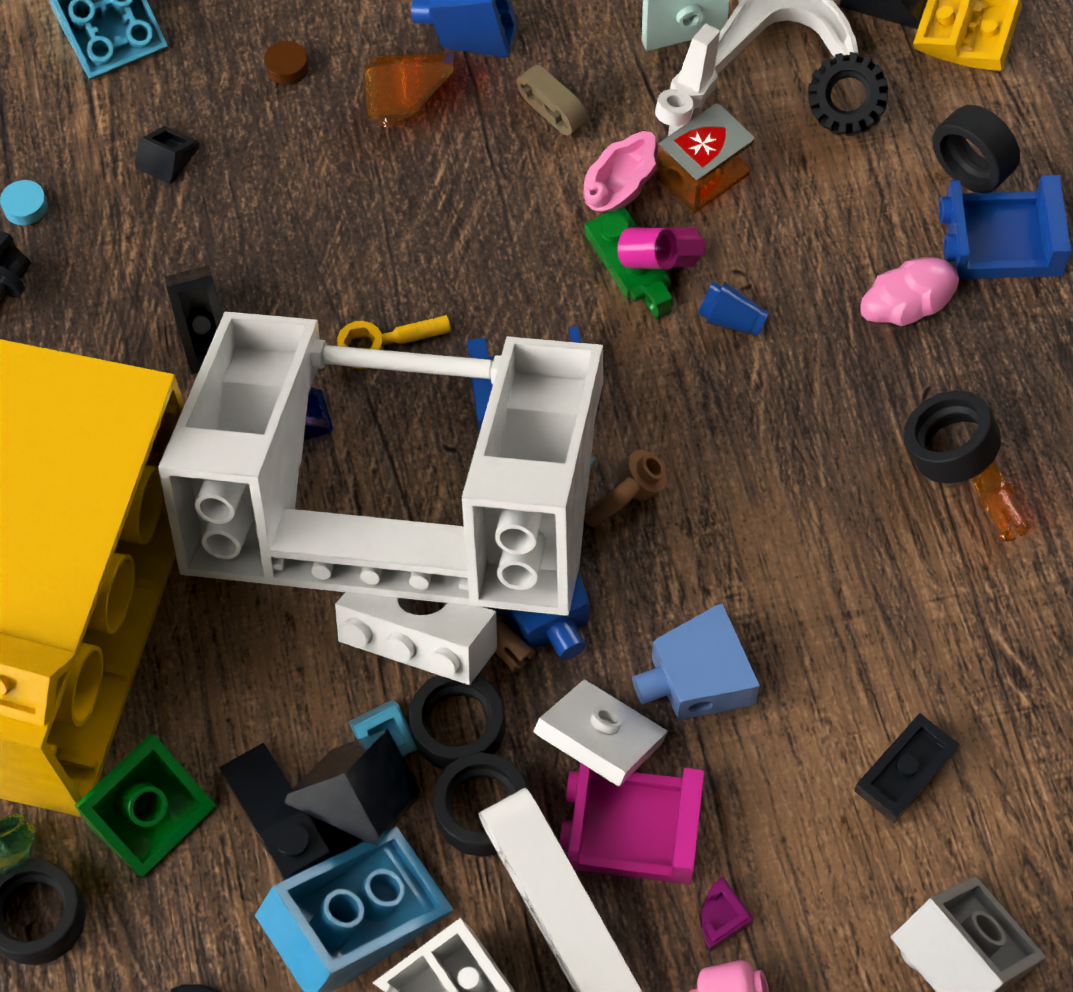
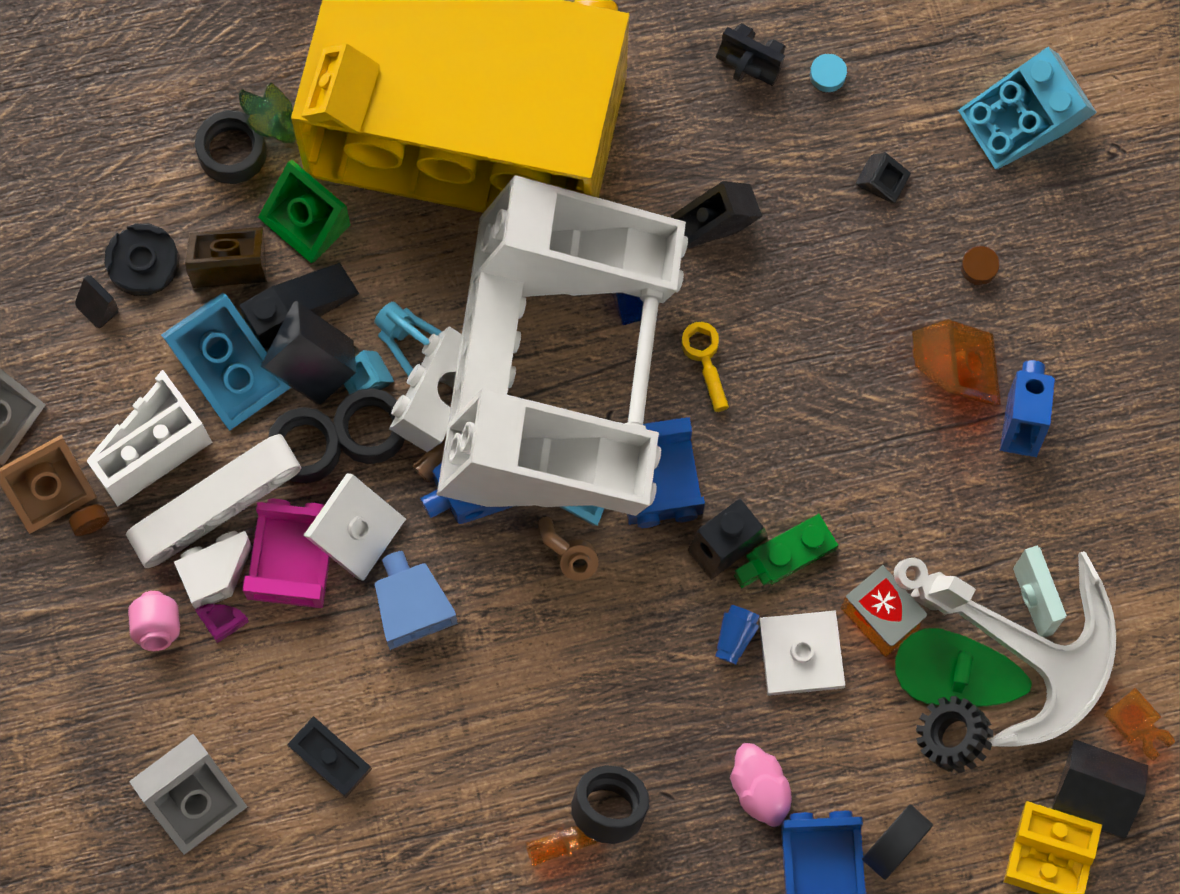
camera: 85 degrees right, 10 degrees up
(197, 913) = (226, 257): none -> dark brown slope
(314, 687) = (399, 324): none -> medium azure plant
(552, 100) = (945, 484): dark tan beam -> none
(614, 301) = (728, 537): none -> black torso
(621, 172) = (867, 540): bright pink arm -> none
(660, 247) = (780, 567): dark pink piece -> none
(660, 917) = (215, 570): none -> white slope
(752, 247) = (801, 653): none -> white plate
(771, 101) = (948, 664): none -> green shield

